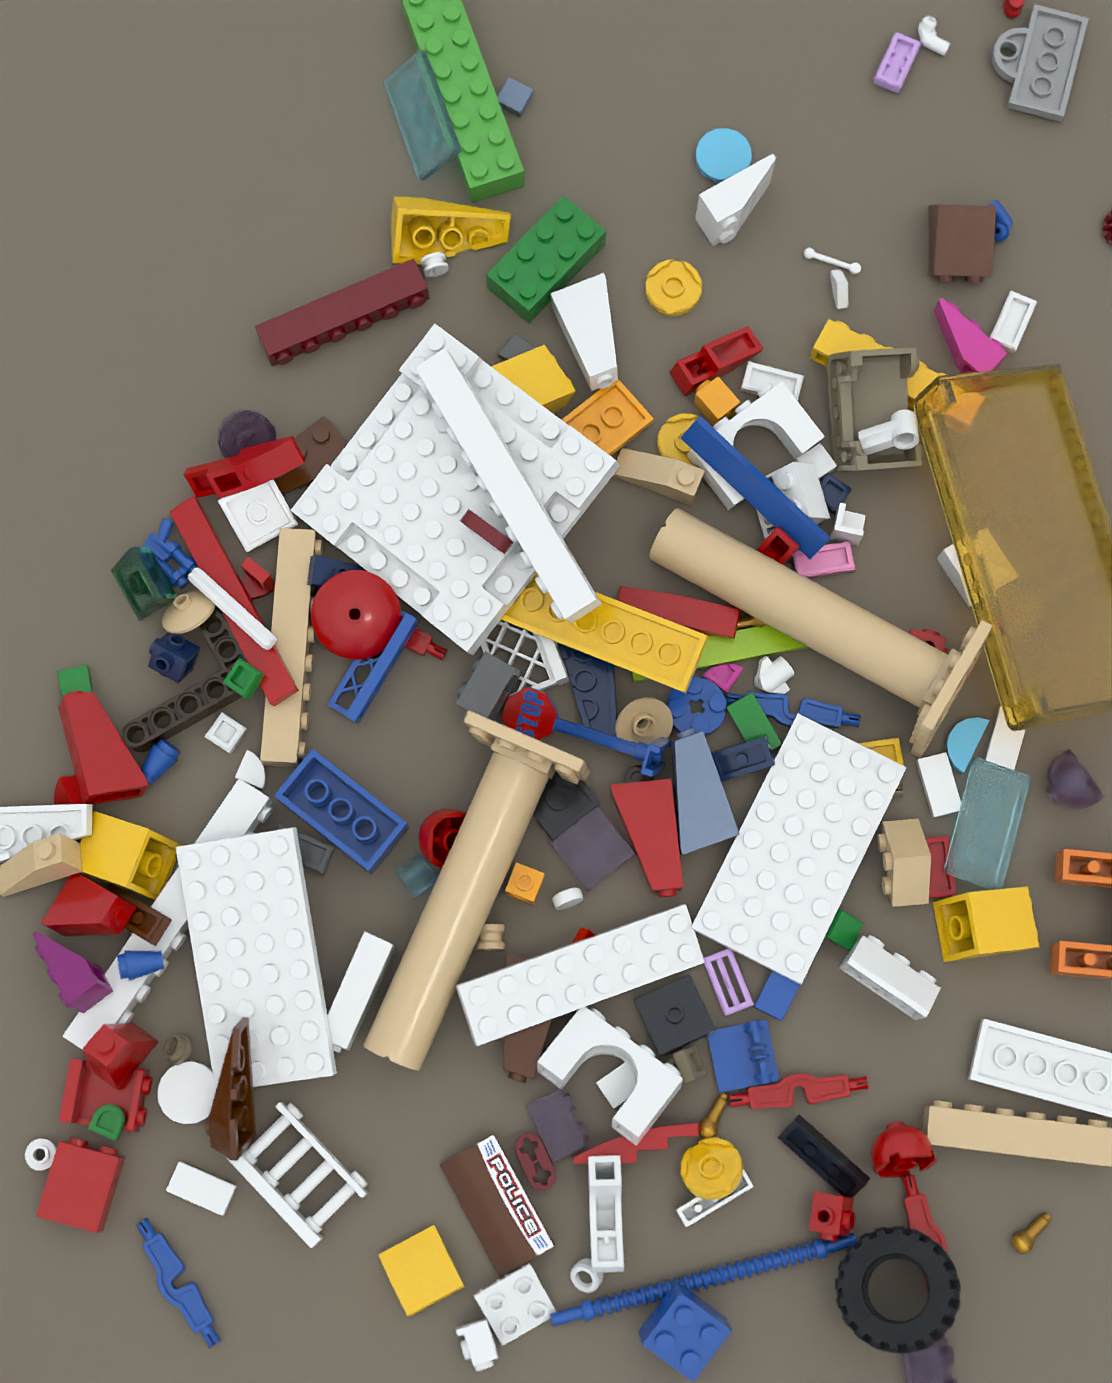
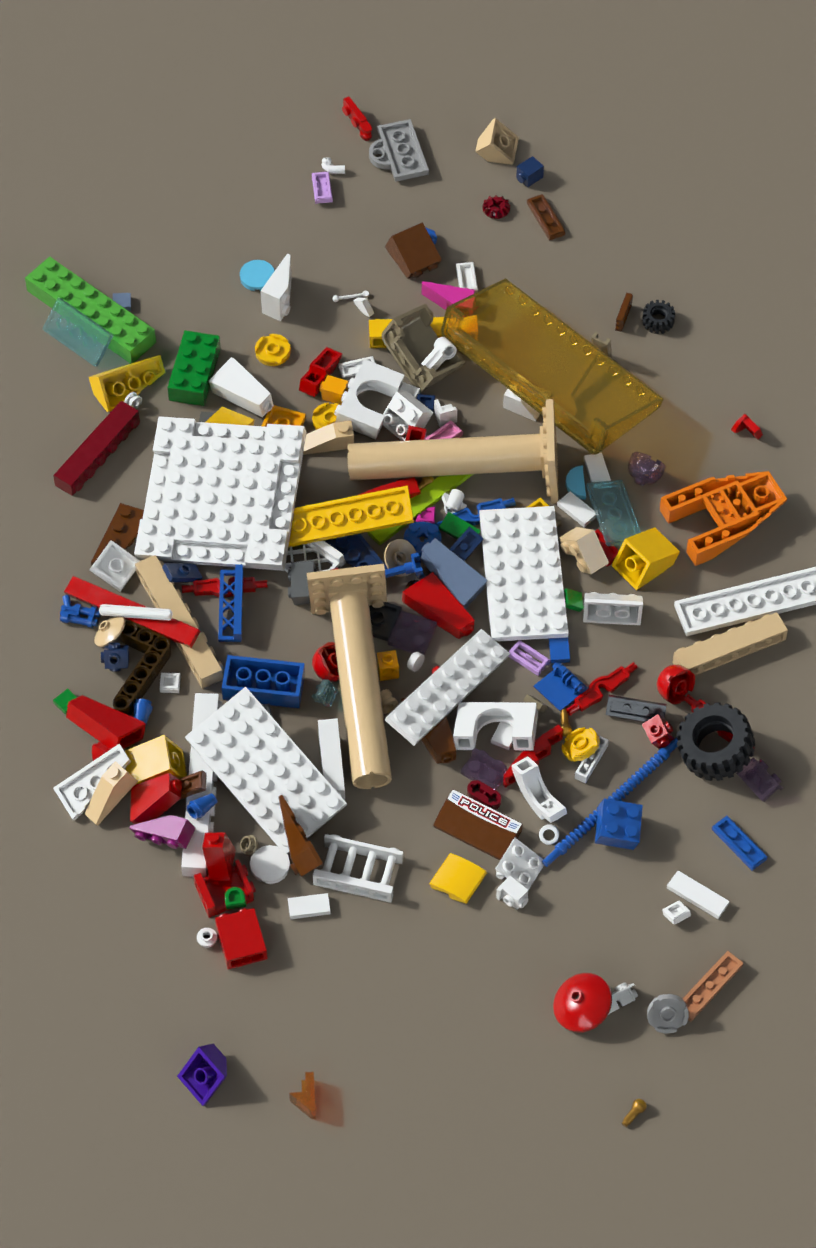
camera: 30 degrees left, 20 degrees down
(143, 582) = (73, 630): clear green slope -> none
(188, 1297) = (336, 963): blue piece -> none
(243, 429) = (86, 530): clear purple cylinder -> none
(244, 678) = (165, 641): green tile -> none
(246, 470) = (96, 544): red slope -> none
(252, 771) = (196, 688): white tile -> none
(256, 580) = (137, 594): red tile -> none
(378, 617) = (206, 593): red dish -> none
(486, 531) = (255, 495): dark red beam -> none
(508, 487) = (254, 467): white brick -> none
(674, 1015) = (511, 685): black plate -> none
(754, 486) = (383, 411): blue tile -> none
(1024, 1240) = (767, 694): pearl gold piece -> none

